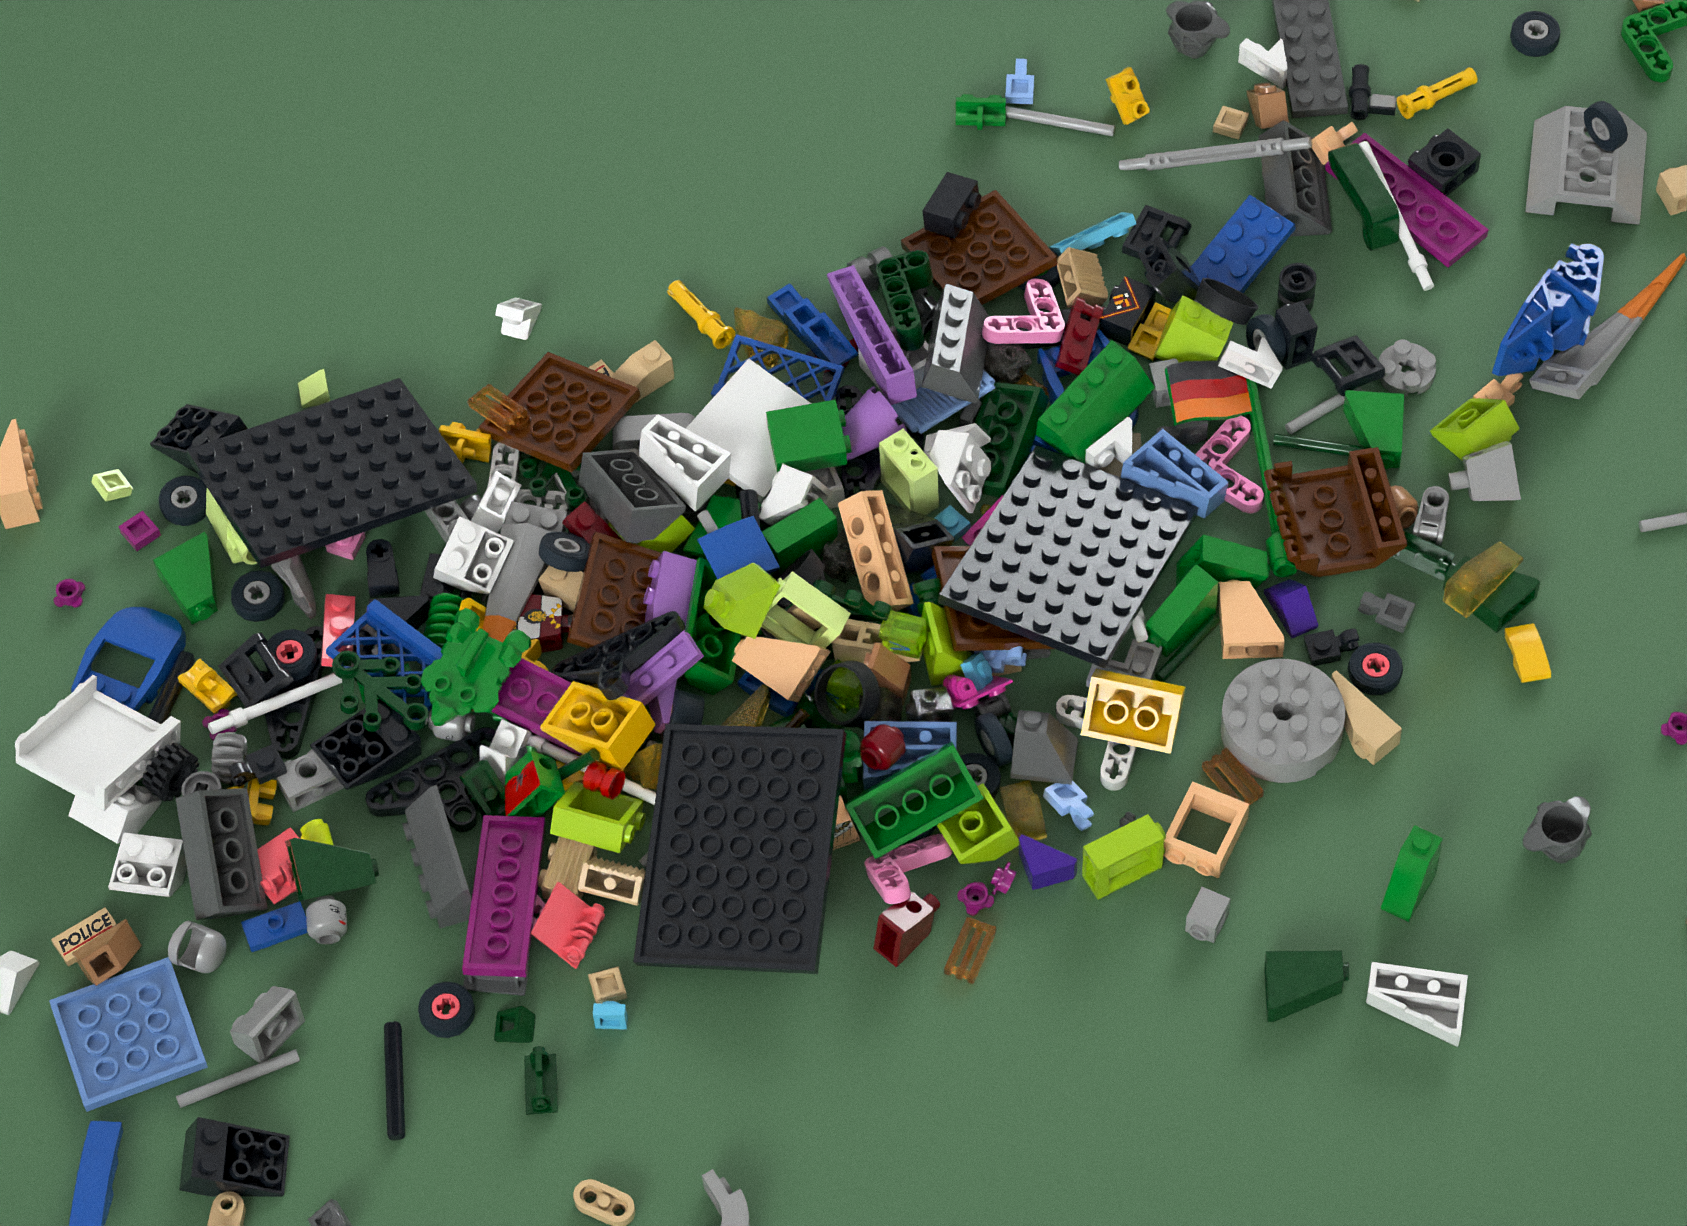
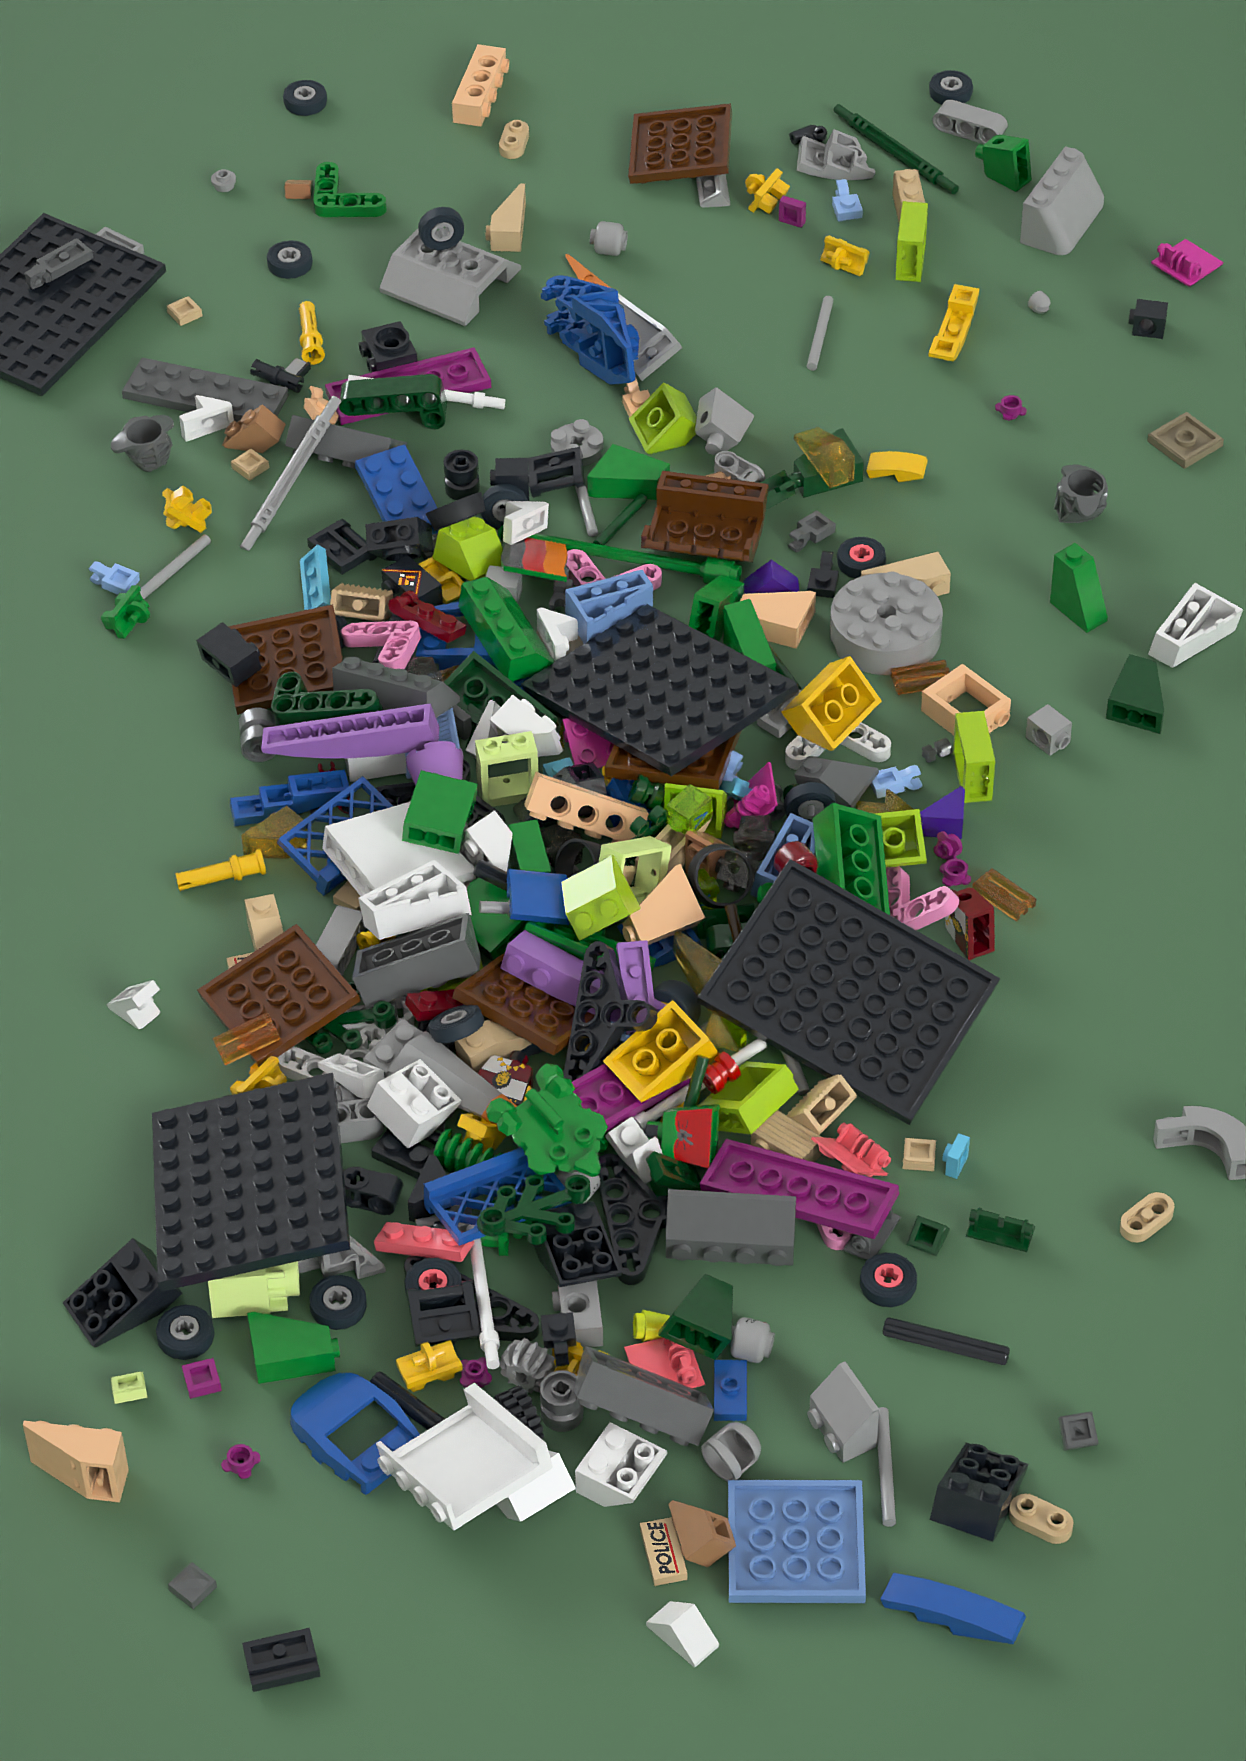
camera: 70 degrees left, 10 degrees down
(314, 390) = (116, 1188): yellowish green slope -> none

